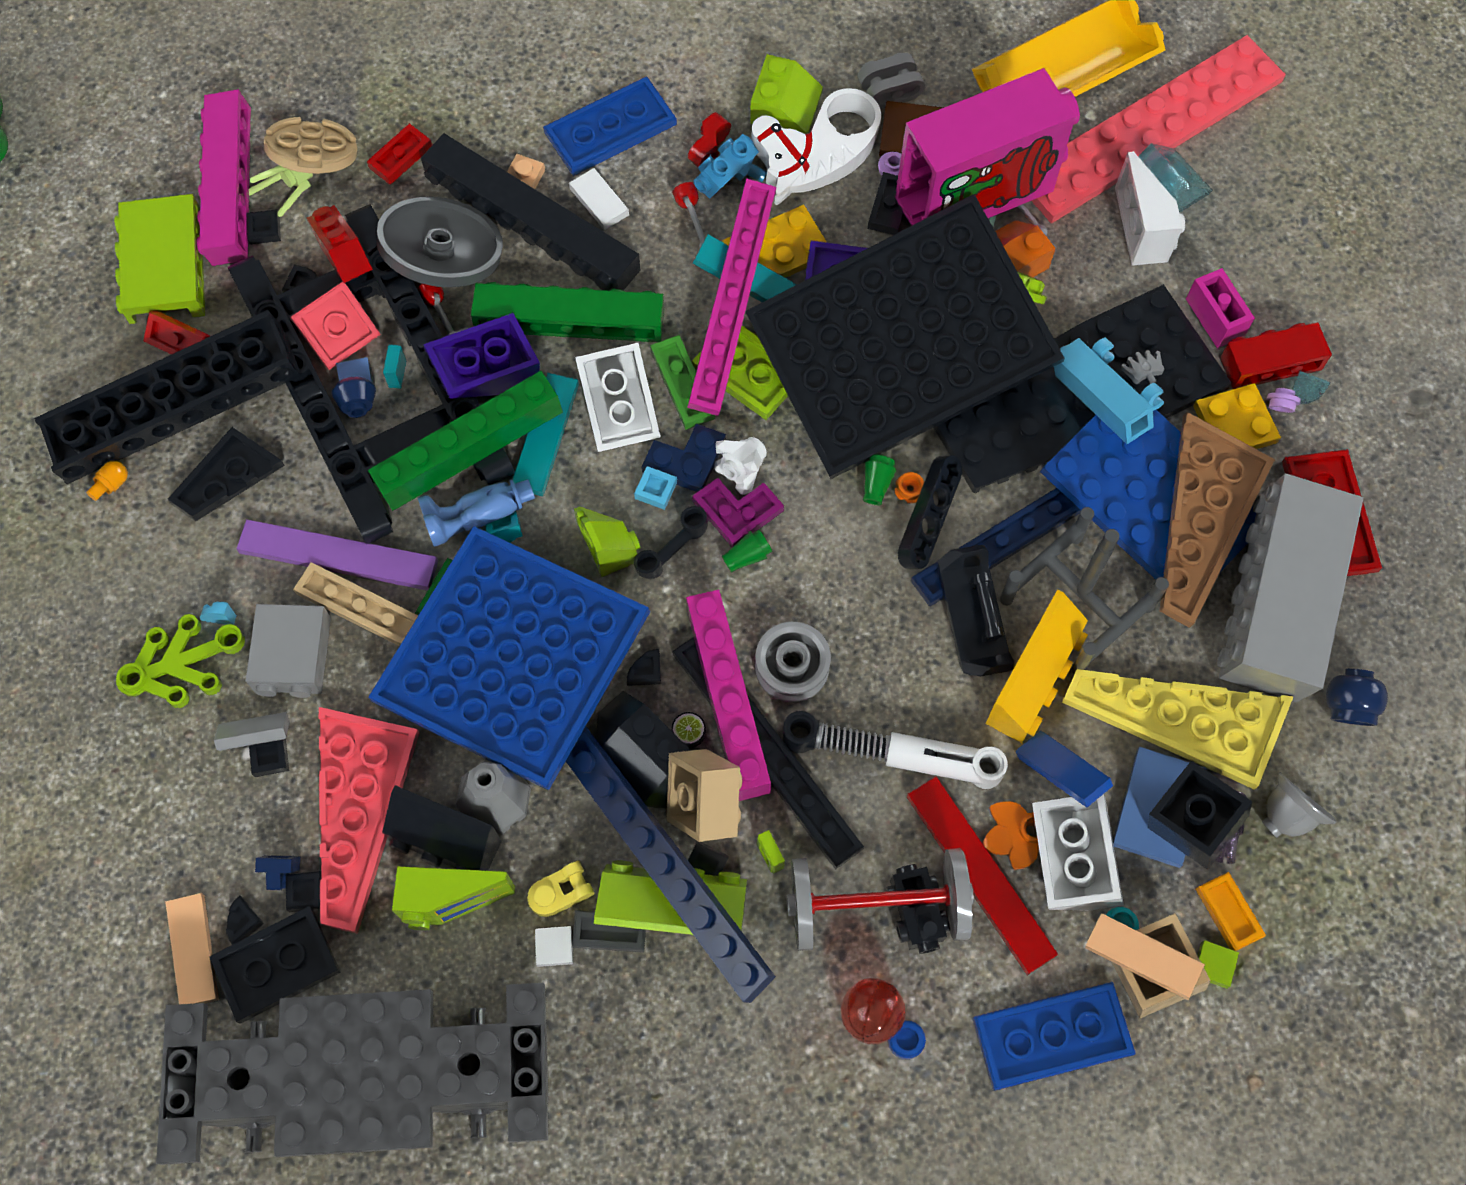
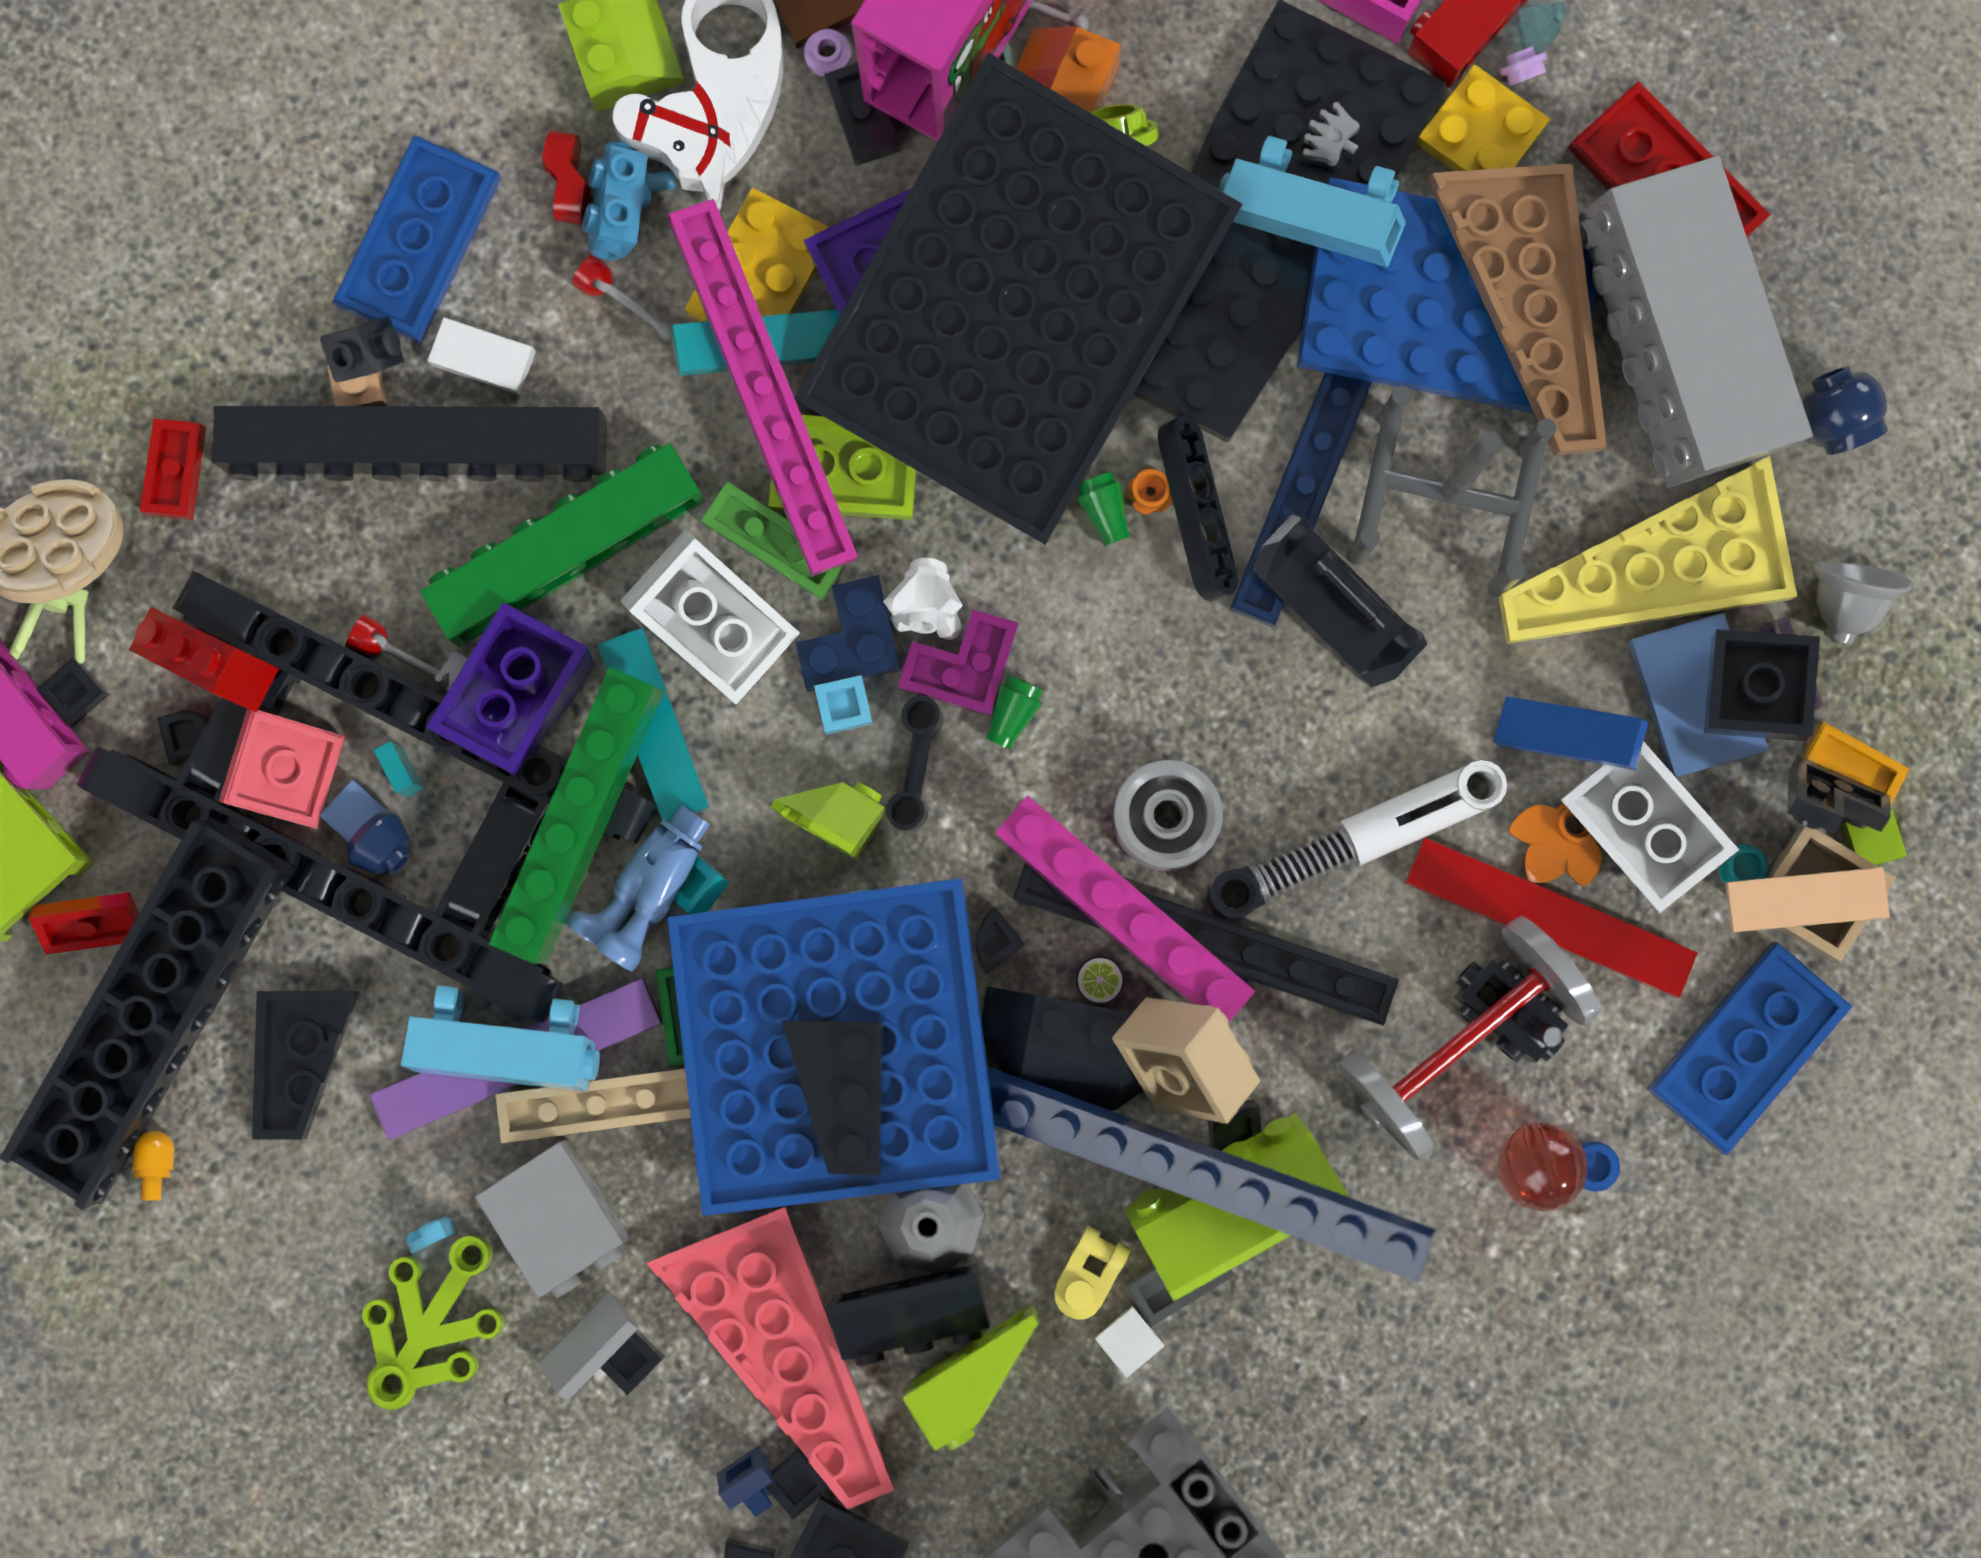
camera: 30 degrees left, 15 degrees up
(330, 539) = (498, 1052): none -> medium azure brick
(439, 241) = (328, 564): dark grey dish -> none
(496, 677) = (843, 1089): none -> black wing
(540, 154) = (362, 349): none -> black bracket
(770, 852) = (1299, 1062): lime tile -> none
(1038, 668) = (1458, 625): yellow slope -> none
(1194, 904) = (1825, 798): none -> black plate

